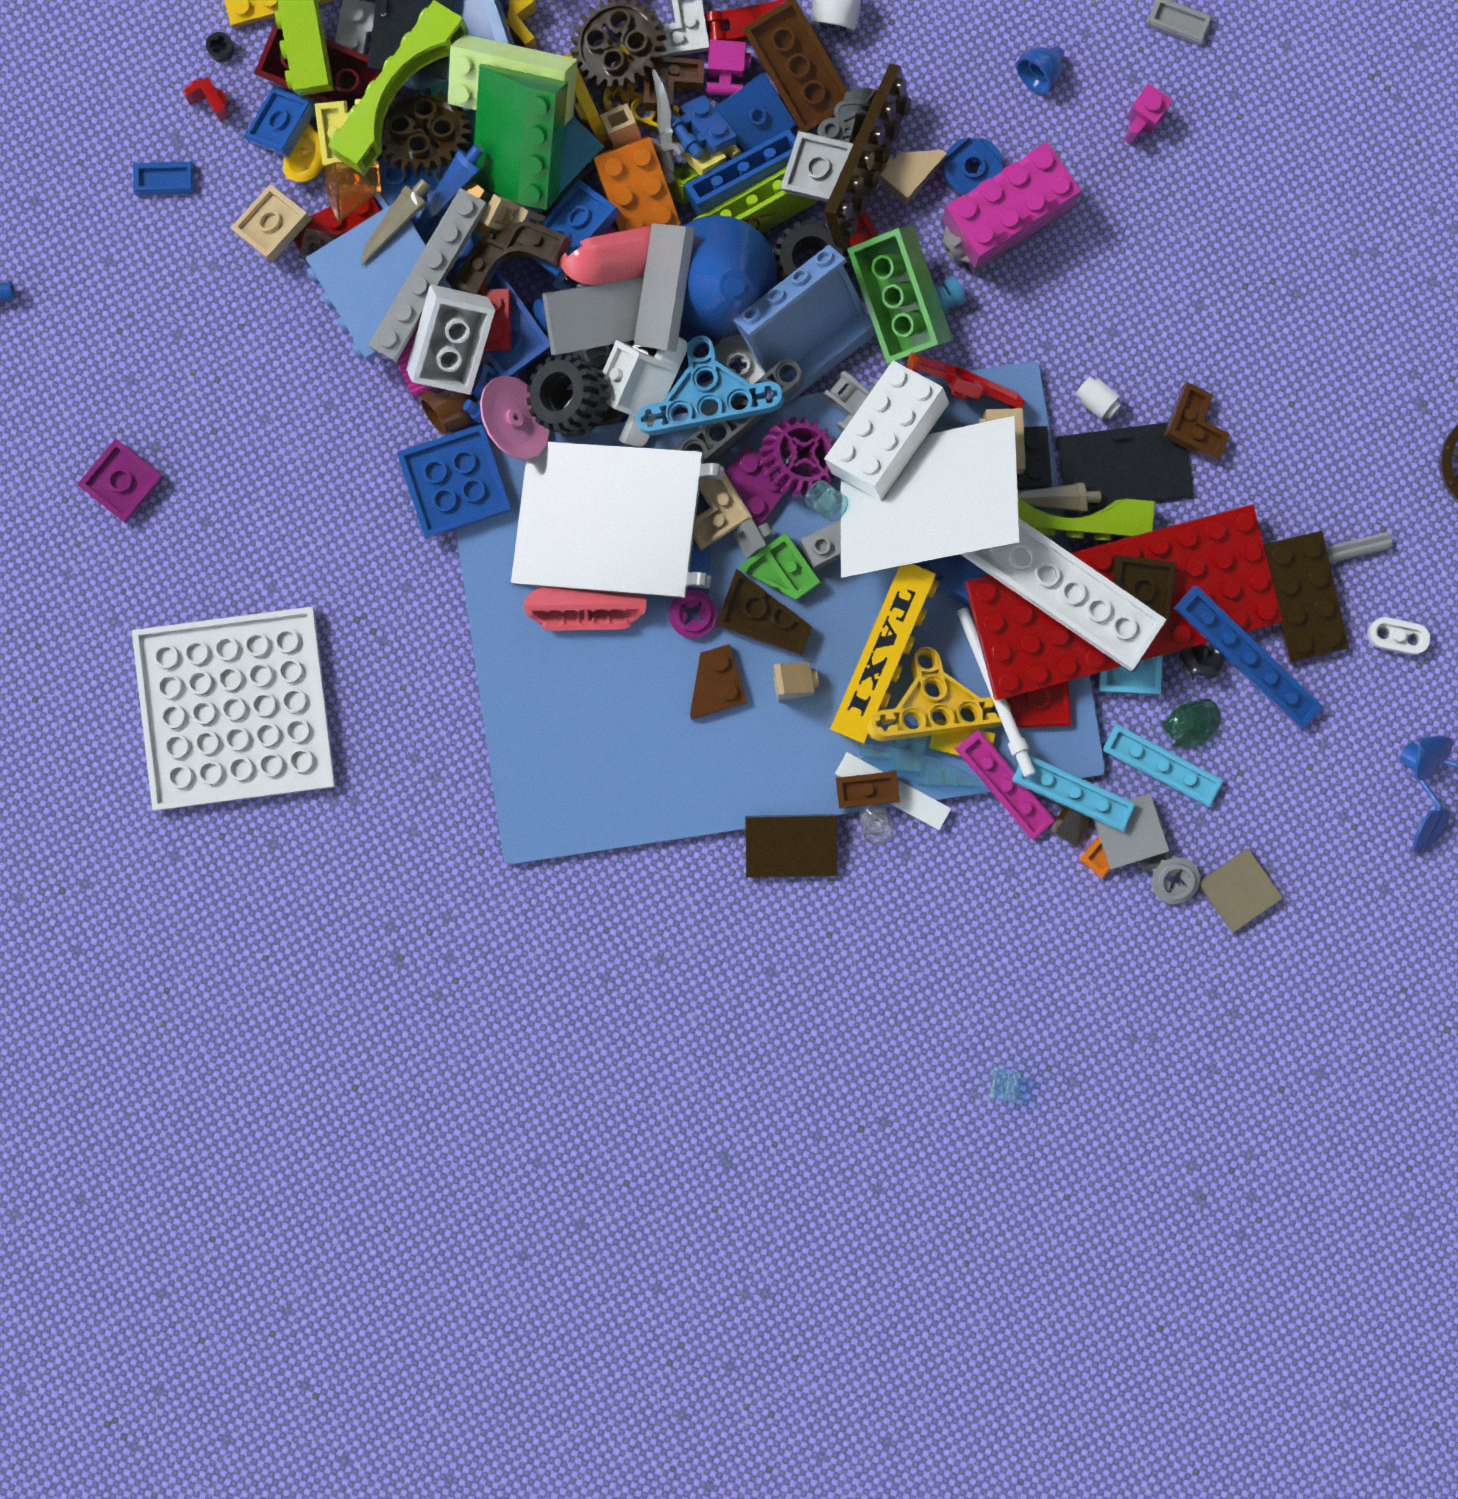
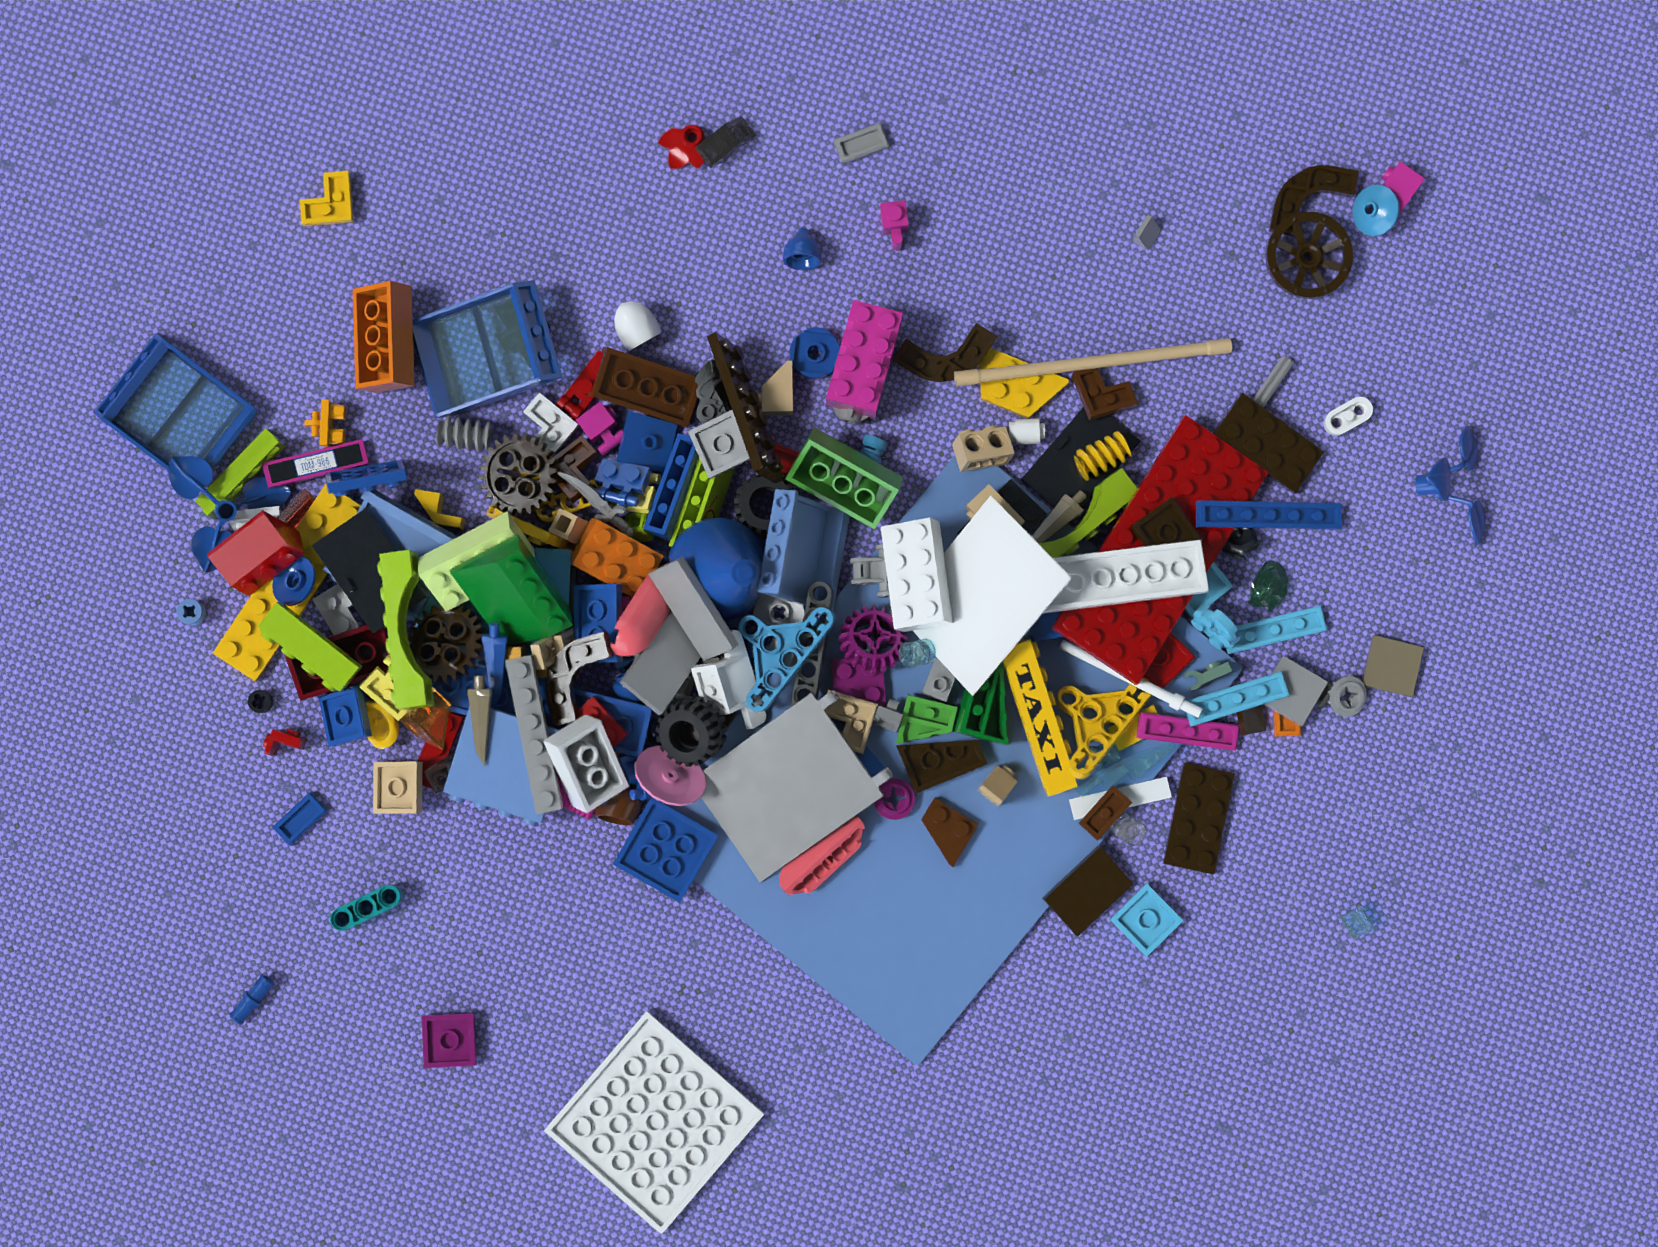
camera: 35 degrees left, 0 degrees up
(138, 300) = (355, 912): none -> teal beam
(820, 917) = (1146, 919): none -> medium azure plate
(841, 603) = (984, 712): none -> green wedge
(946, 870) = (1198, 818): none -> dark brown plate
(963, 382) = (935, 497): red plate -> none
(1043, 384) = (984, 453): none -> tan brick
(1075, 752) = (1213, 671): none -> sand green plate
(1082, 282) = (942, 368): none -> dark brown plate
(1112, 713) = (1215, 626): none -> medium azure plate
(1127, 348) = (1018, 395): none -> yellow wing
(1146, 475) = (1101, 455): none -> yellow piece
(1327, 467) = (976, 376): none -> tan piece
(1363, 318) = (1147, 233): none -> light grey slope

